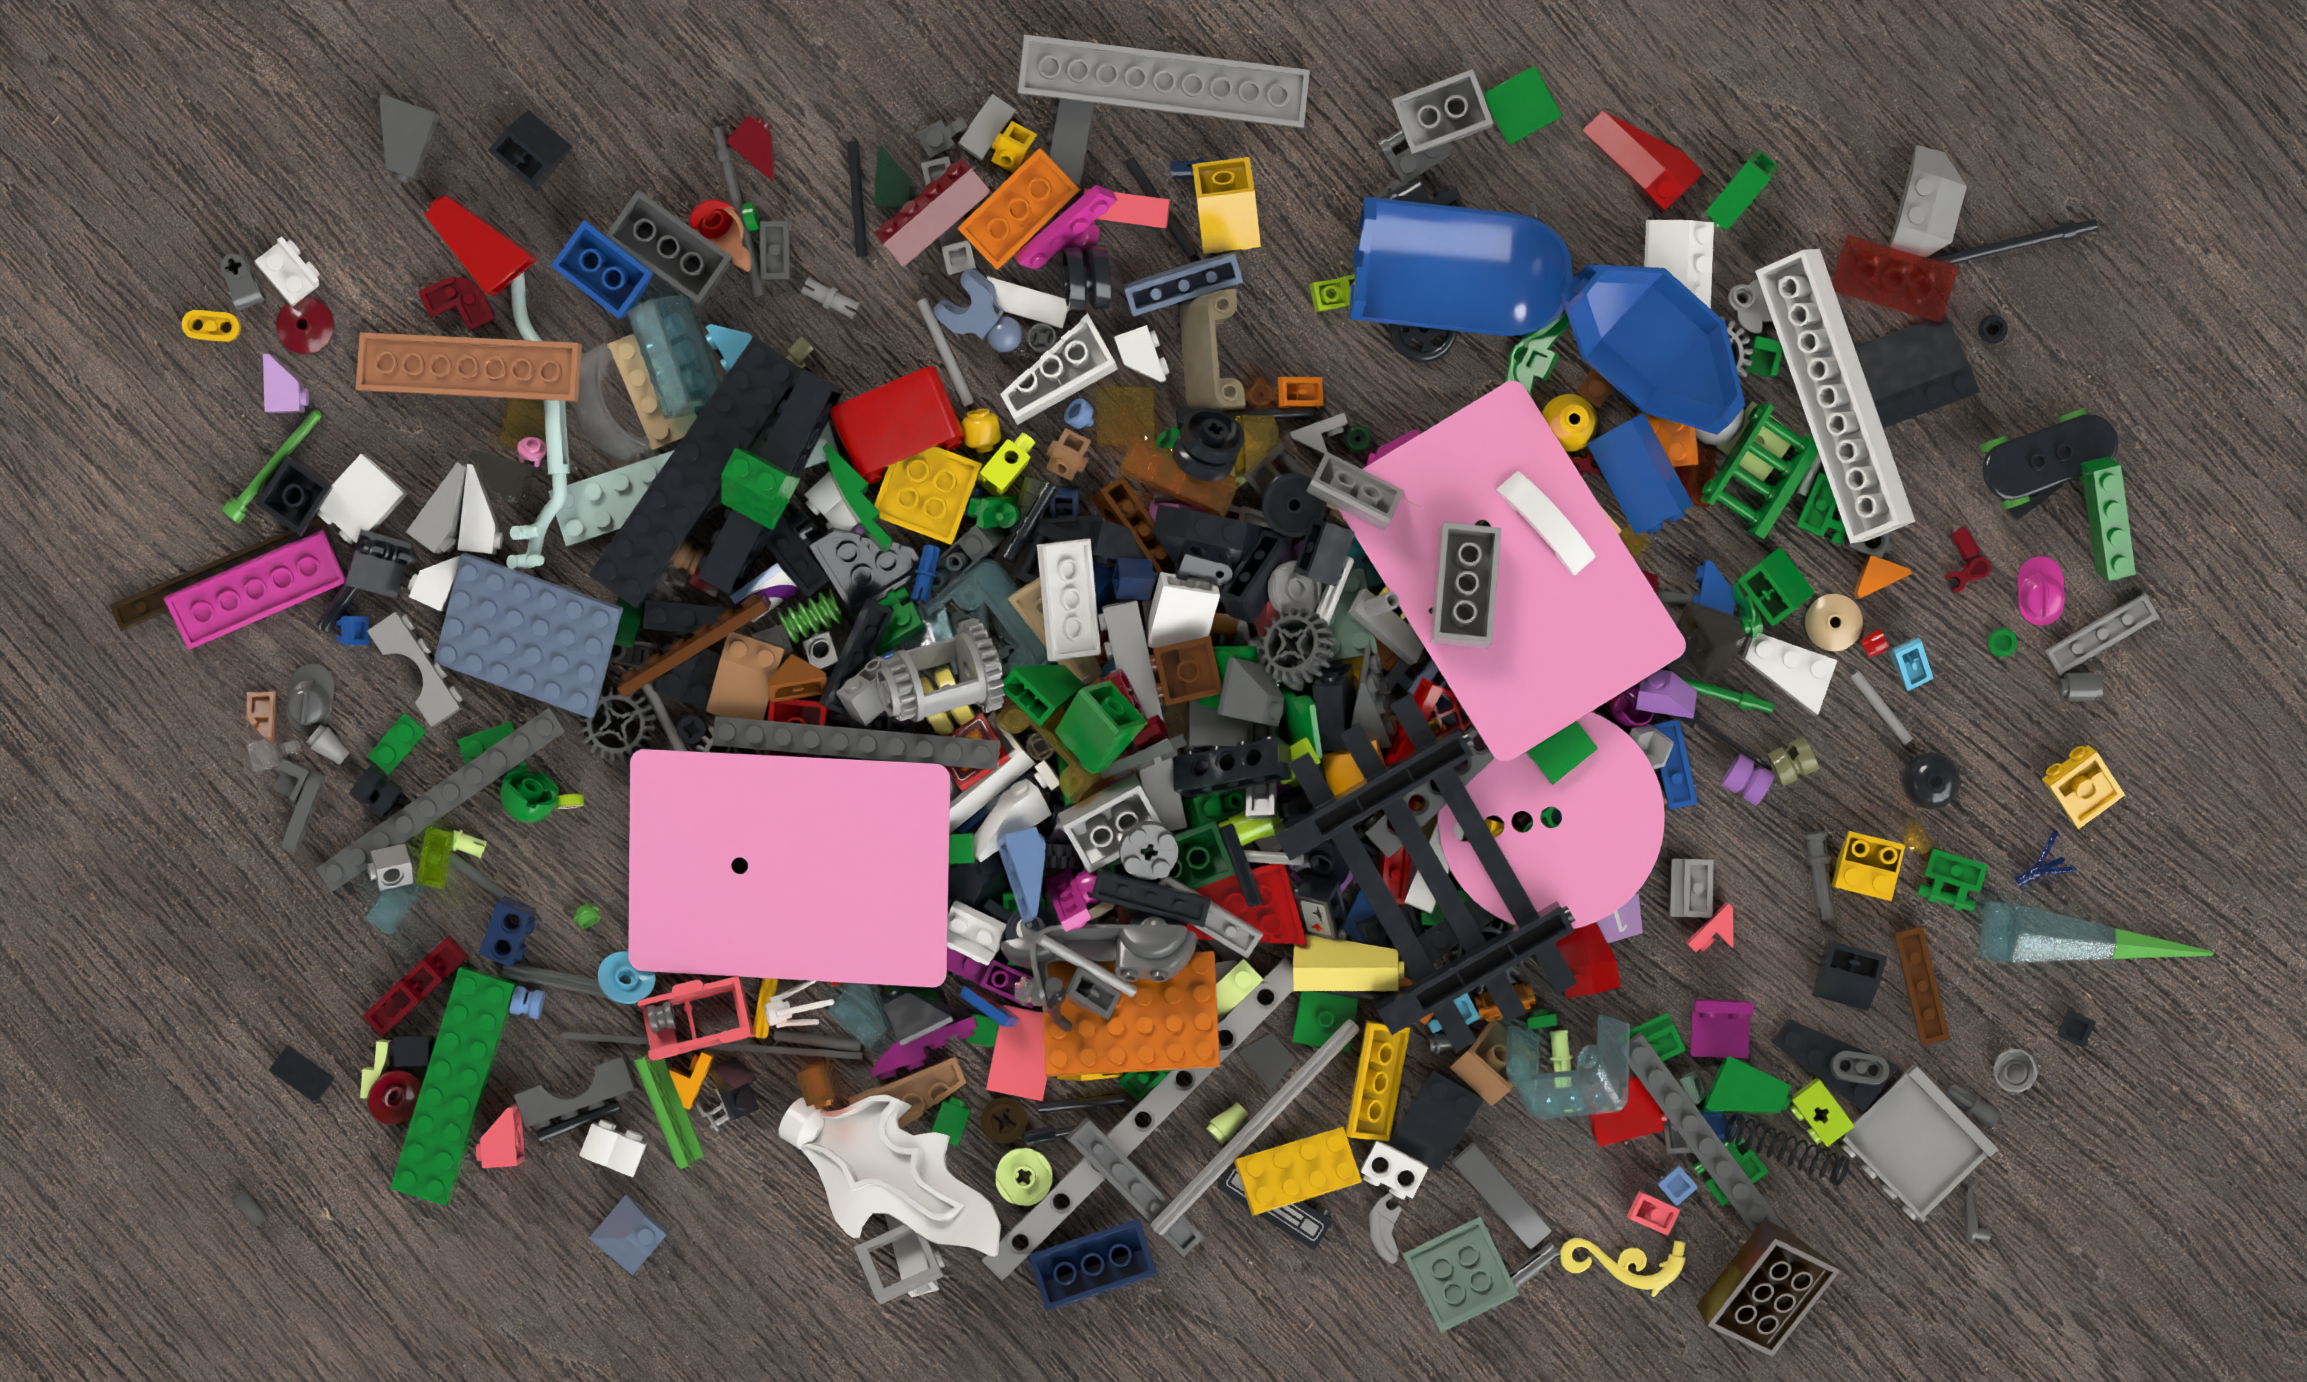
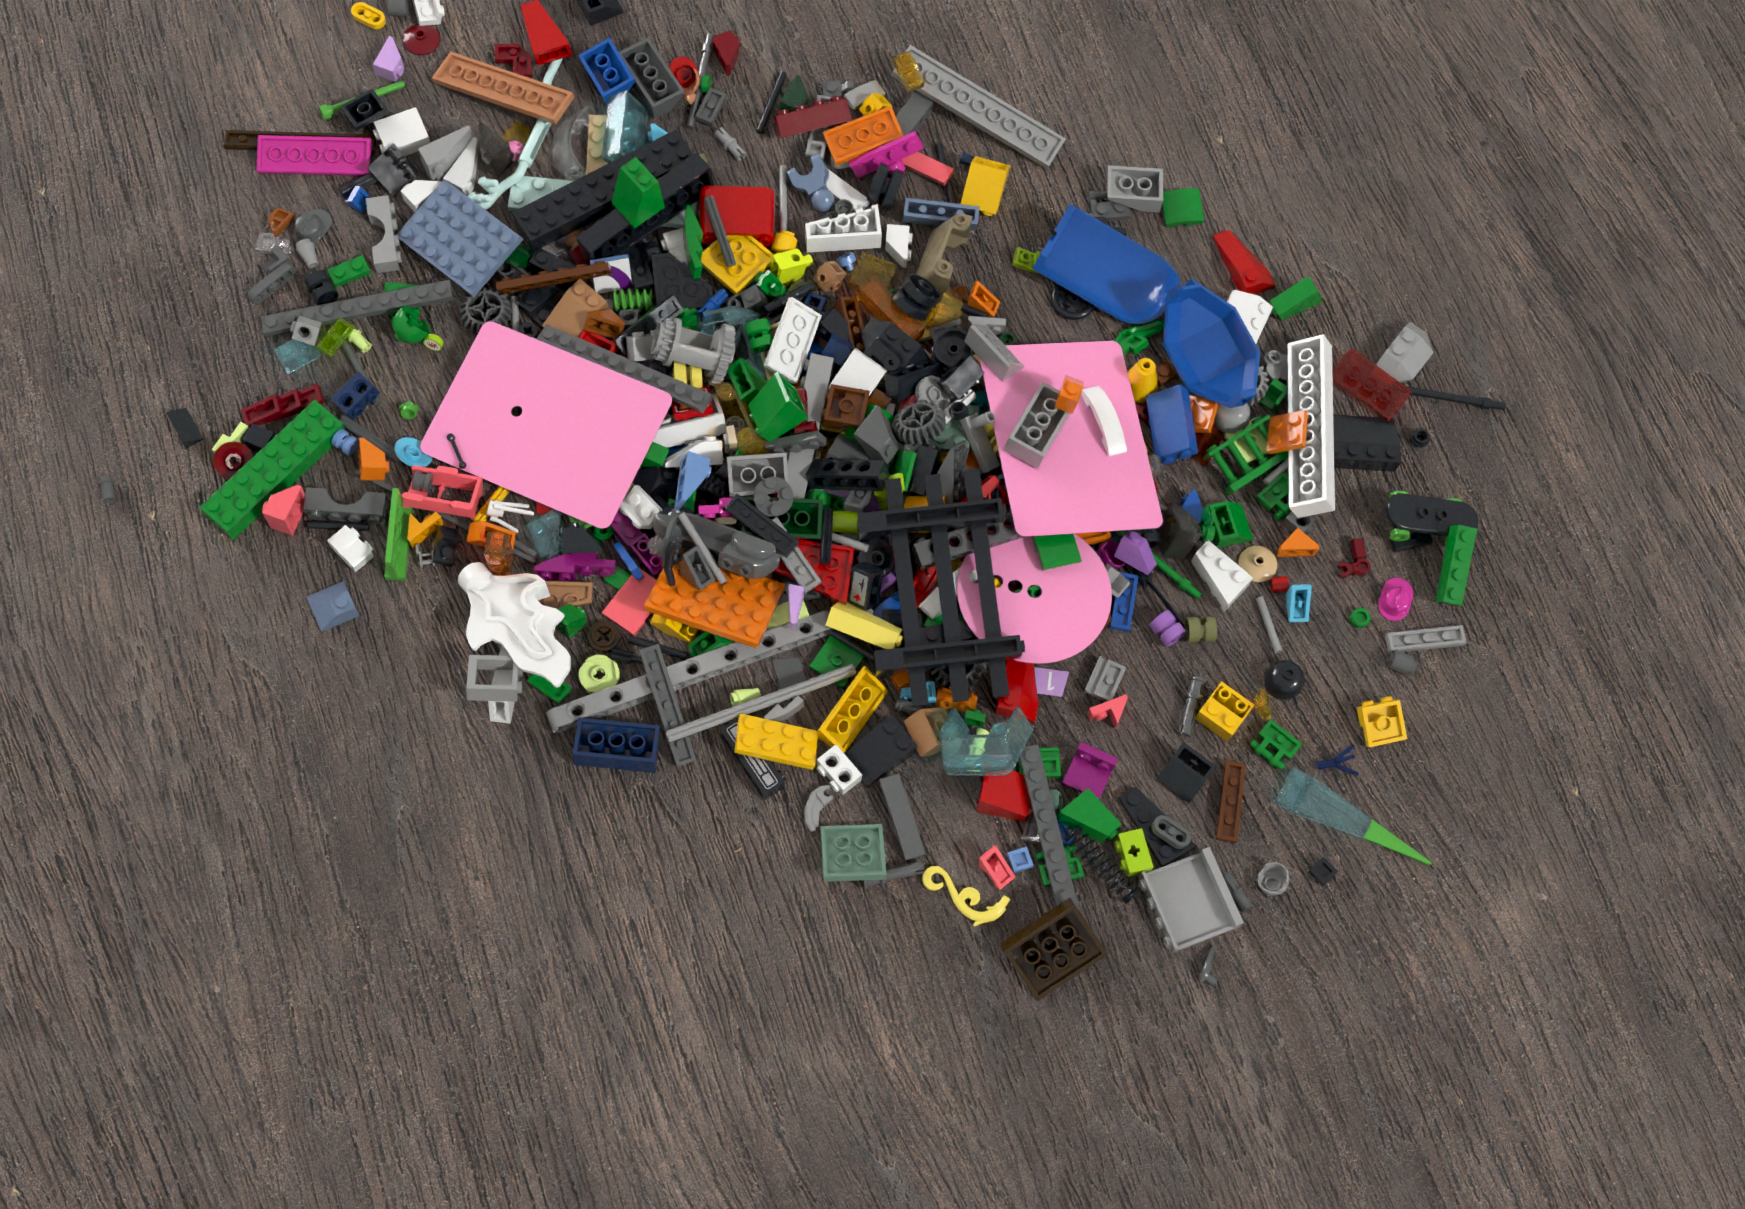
camera: 15 degrees right, 20 degrees down
(577, 1016) = (371, 461): none -> orange slope
(668, 937) = (450, 437): none -> black hinge
(791, 1053) = (478, 533): none -> orange slope
(888, 467) = (720, 231): none -> dark grey axle
(1012, 605) = (759, 332): none -> green wheel
(1041, 83) = (907, 70): none -> clear yellow slope
(1239, 975) = (795, 599): none -> lavender slope
(1281, 1127) = (779, 714): none -> light grey slope
(1336, 596) = (958, 411): none -> black plate
(1489, 525) = (1069, 394): none -> orange slope
(1640, 550) = (1155, 465): none -> clear plate
(1806, 424) = (1287, 432): none -> orange plate

